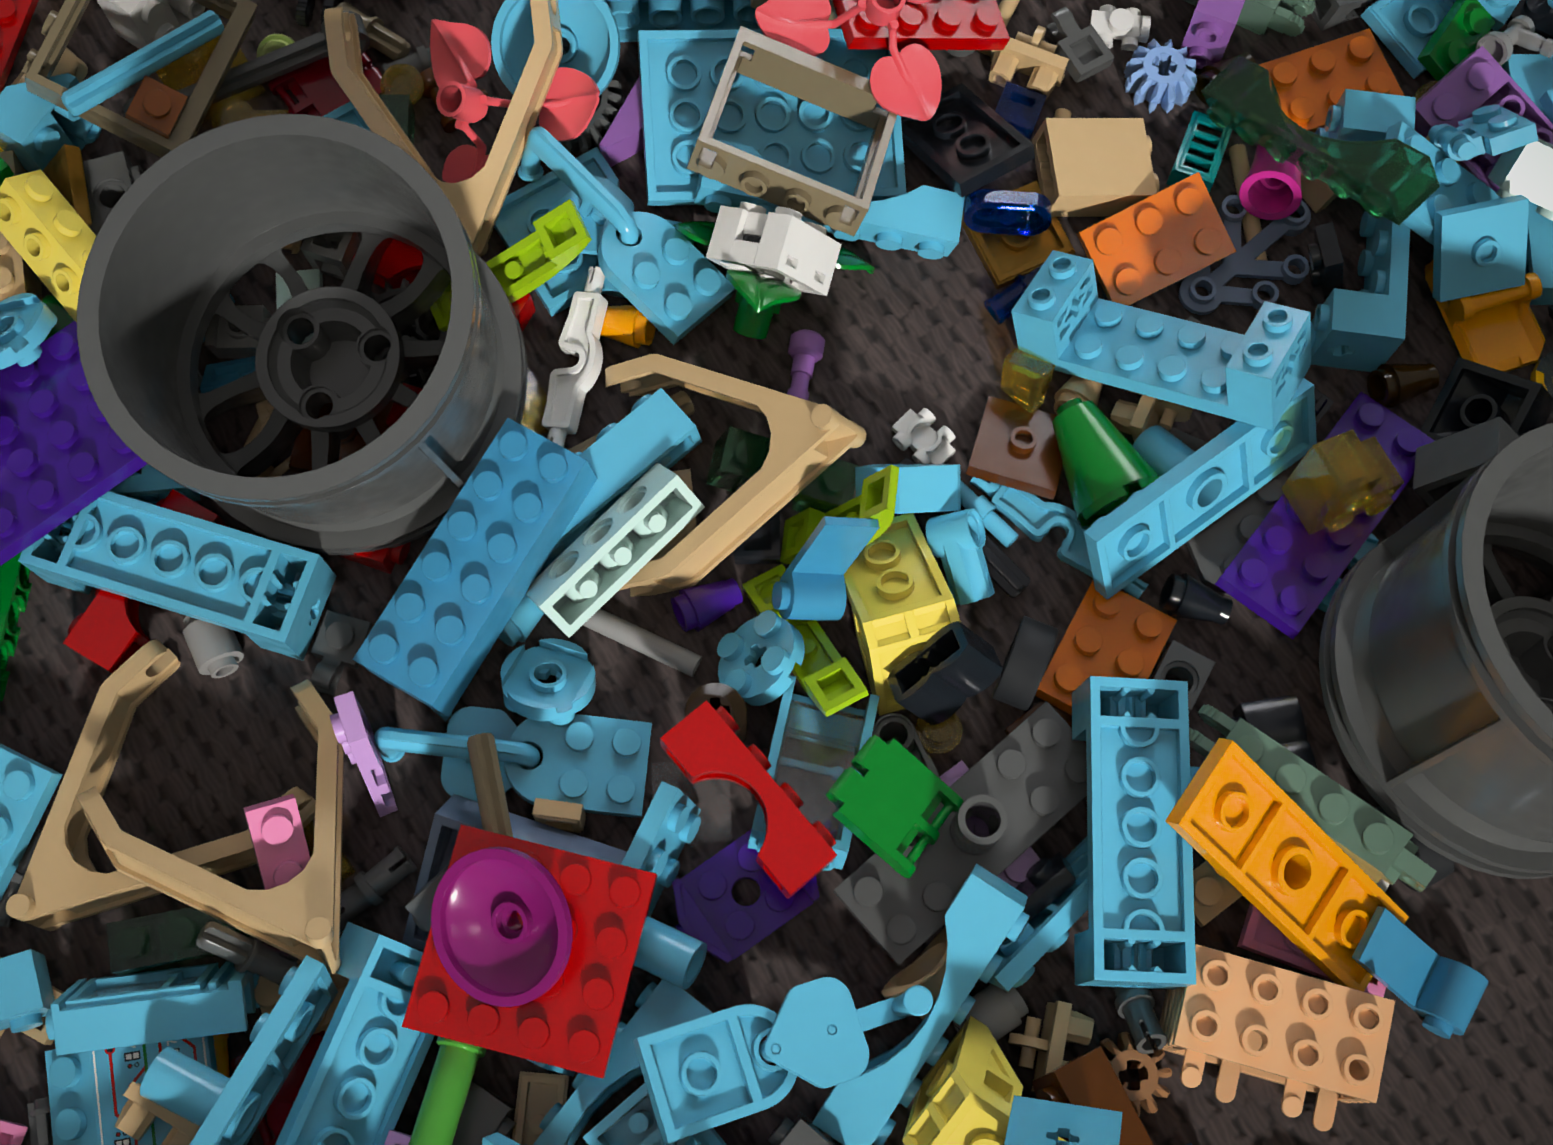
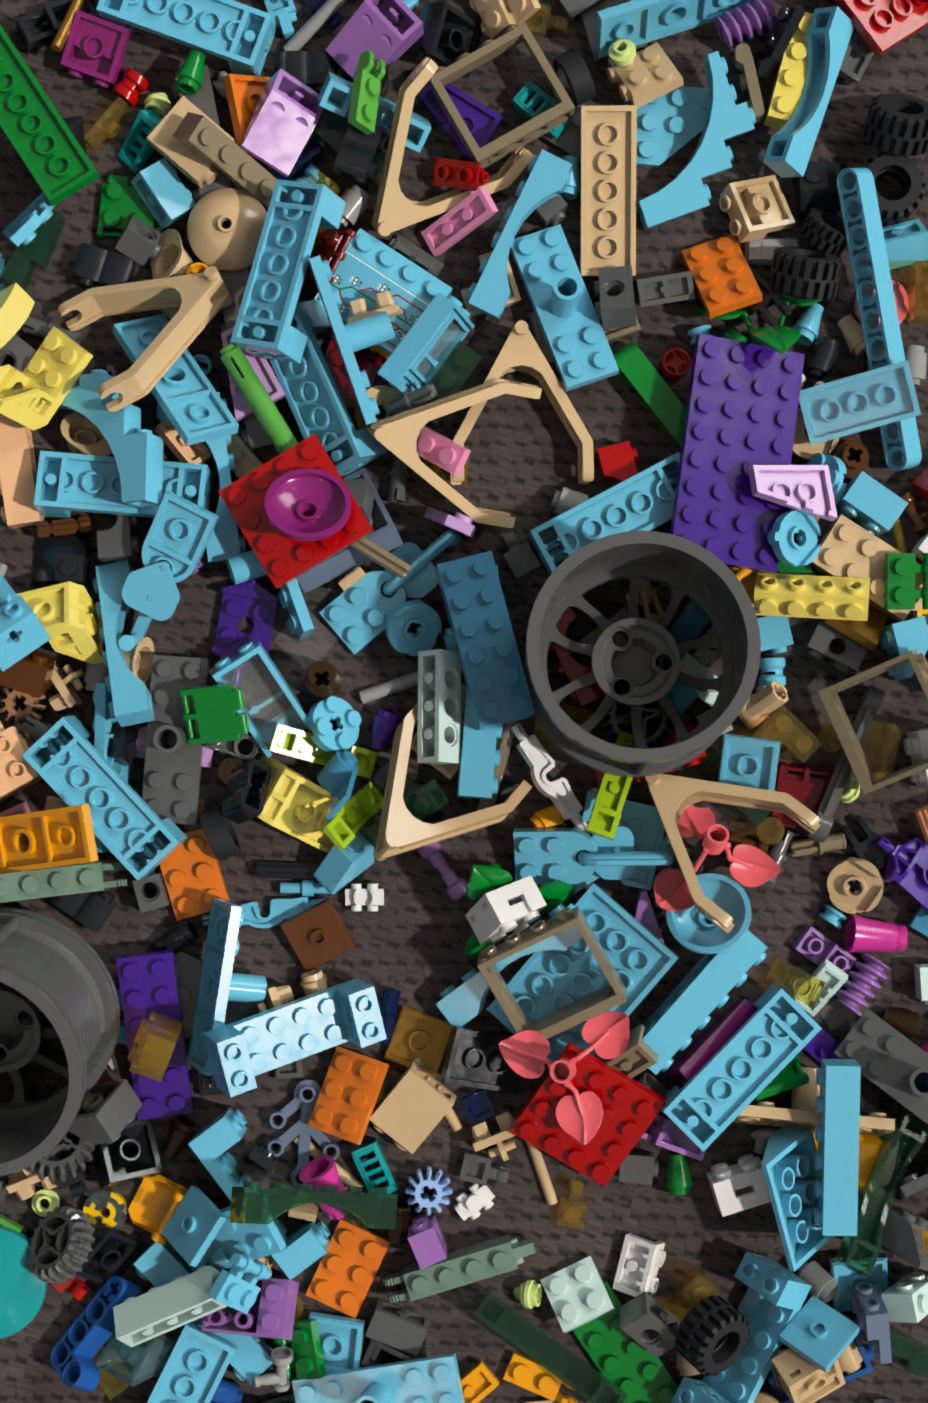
camera: 135 degrees right, 15 degrees up
(142, 63) = (873, 712): medium azure axle -> none
(156, 107) = (848, 699): dark orange plate -> none
(709, 749) = (233, 652): red arch -> none
(959, 544) = (299, 860): medium azure piece -> none
(1007, 212) = (421, 1048): clear blue plate -> none
(1026, 379) = (344, 969): clear yellow slope -> none
(1097, 461) = (271, 956): green cone -> none

